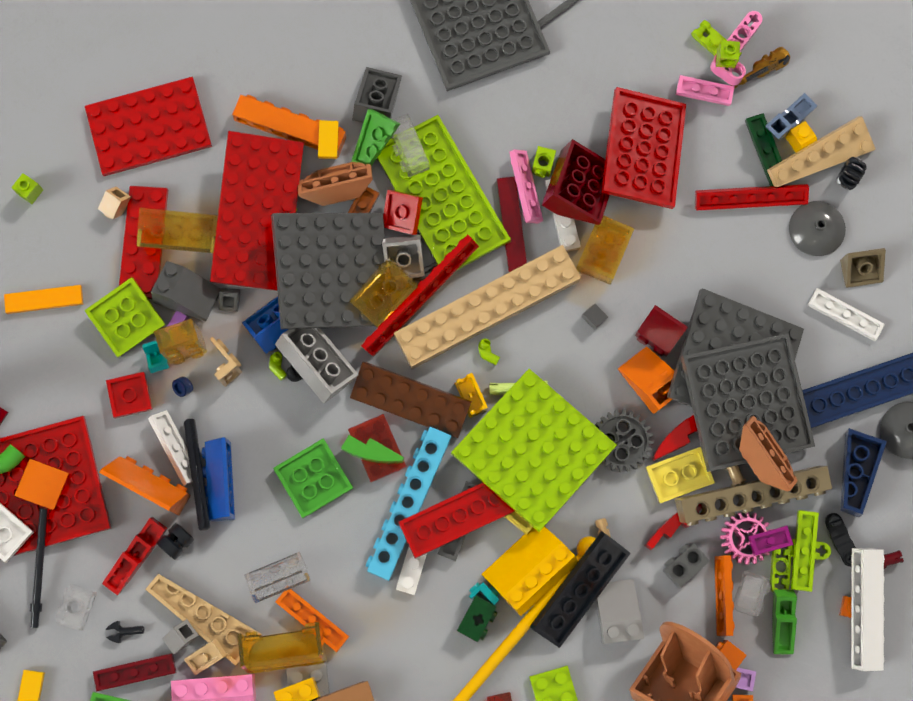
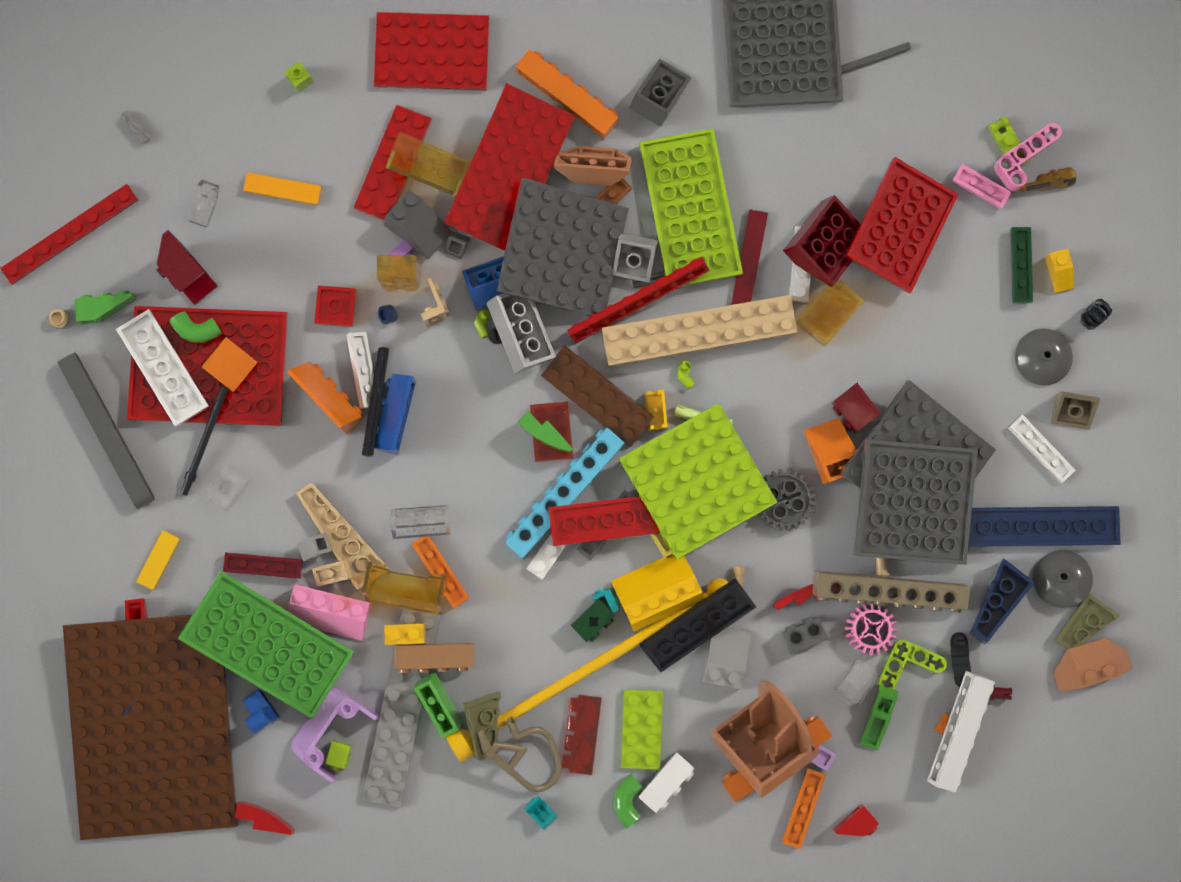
camera: 20 degrees right, 5 degrees up
(114, 202) = (376, 117): tan brick -> none
(123, 631) = (264, 525): black bar -> none
(125, 317) = (353, 231): lime plate -> none
(134, 556) = (295, 458): red slope -> none
(155, 359) = (369, 278): teal bracket -> none
(168, 544) = (331, 462): black wheel -> none
(313, 478) = (482, 440): bright green plate -> none
(328, 139) = (599, 120): yellow tile -> none
(373, 137) = (643, 132): bright green wing -> none
(383, 291) = (605, 285): clear yellow slope -> none
(402, 212) = (647, 213): plate -> none
(409, 147) = (673, 150): clear brick -> none
(526, 186) = (775, 226): bright pink plate -> none
(543, 154) = (803, 200): lime brick -> none
(594, 316) = (799, 373): dark grey slope -> none
(676, 438) = (836, 514): red slope -> none
(679, 475) = (827, 550): light yellow plate -> none
(723, 591) = (830, 675): orange plate -> none
(728, 54) = (1013, 159): lime brick -> none
(751, 197) = (990, 306): red plate -> none
(766, 456) = (914, 558): nougat wedge -> none
(770, 540) = (891, 638): magenta plate -> none
(791, 117) = (1056, 240): sand blue arch -> none
(804, 551) = (921, 658): lime plate -> none
(834, 148) = (1087, 284): tan wing -> none

